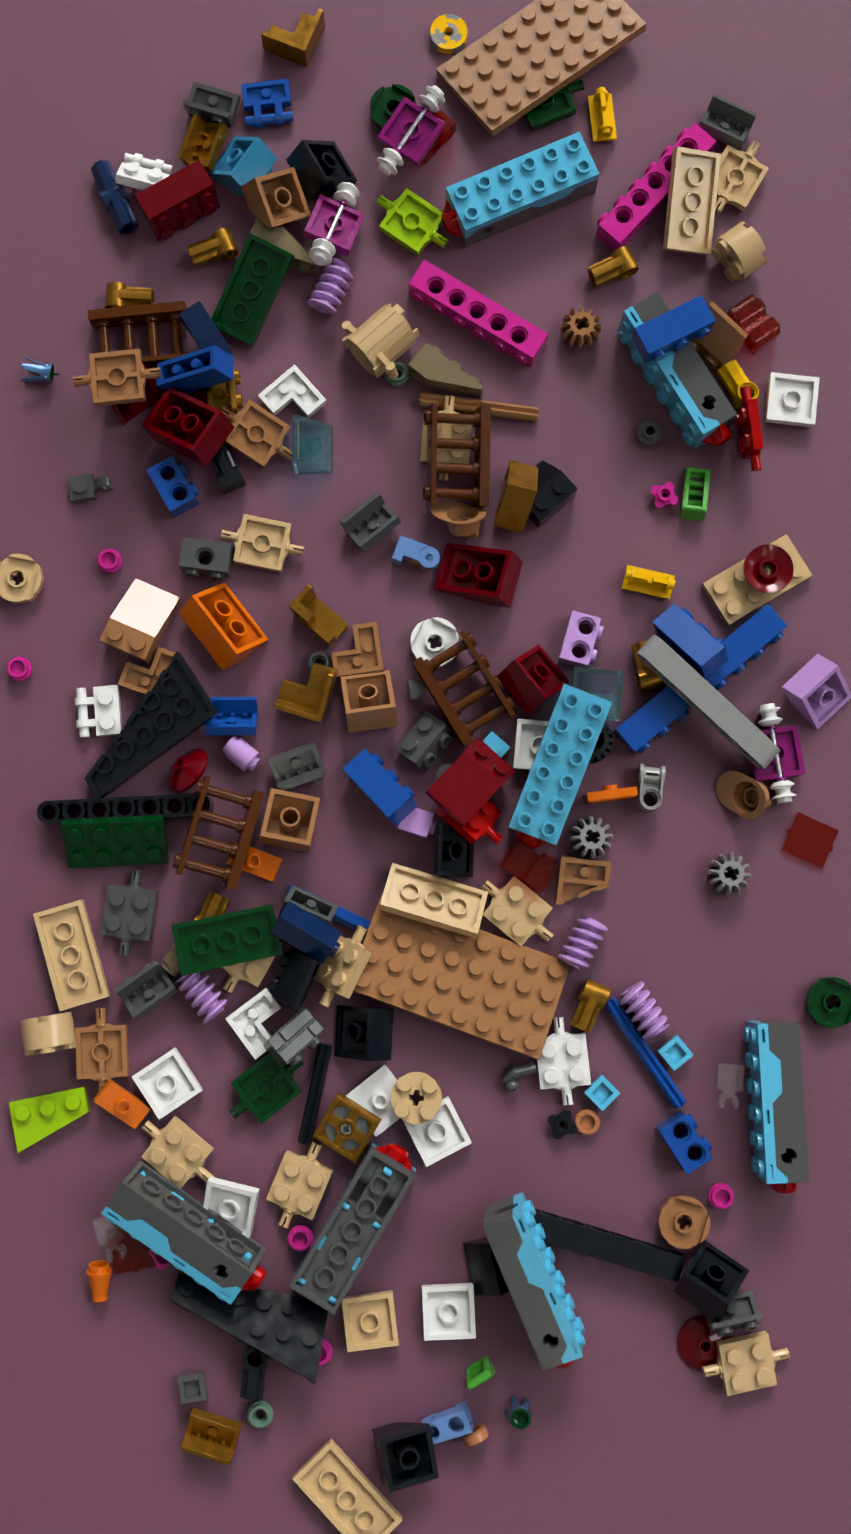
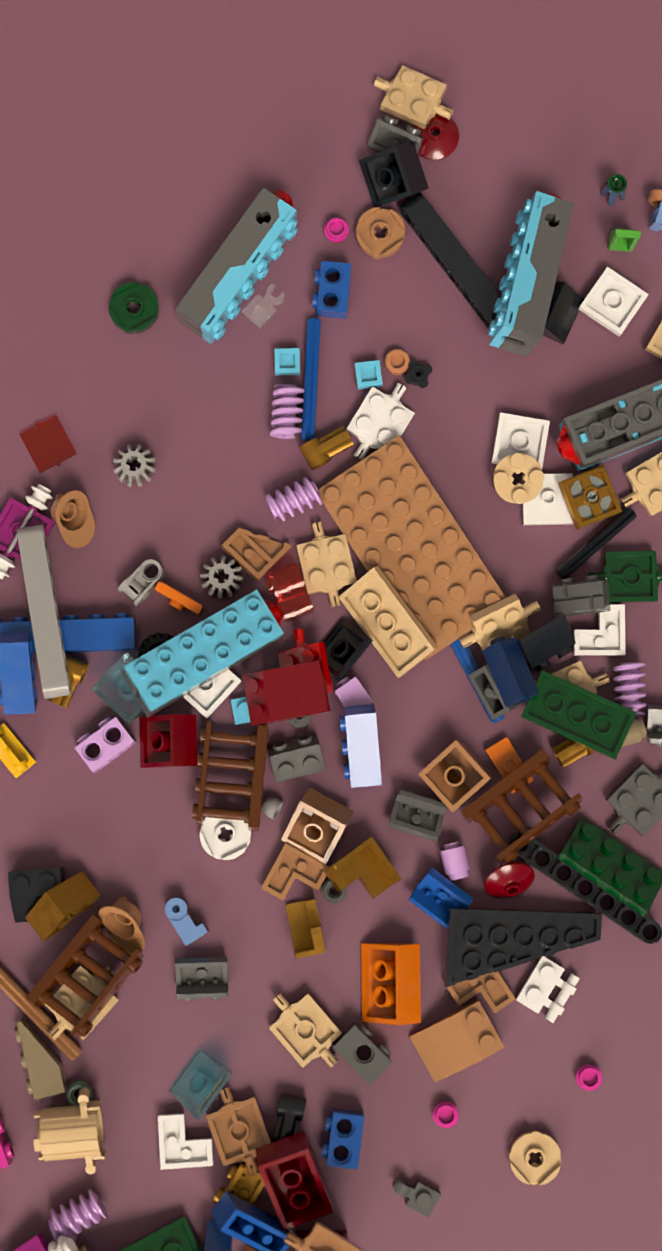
camera: 150 degrees left, 0 degrees up
(364, 1032) = (522, 560): black slope -> none
(479, 574) = (145, 864): dark red slope -> none
(515, 1073) = (424, 439): dark grey arm -> none

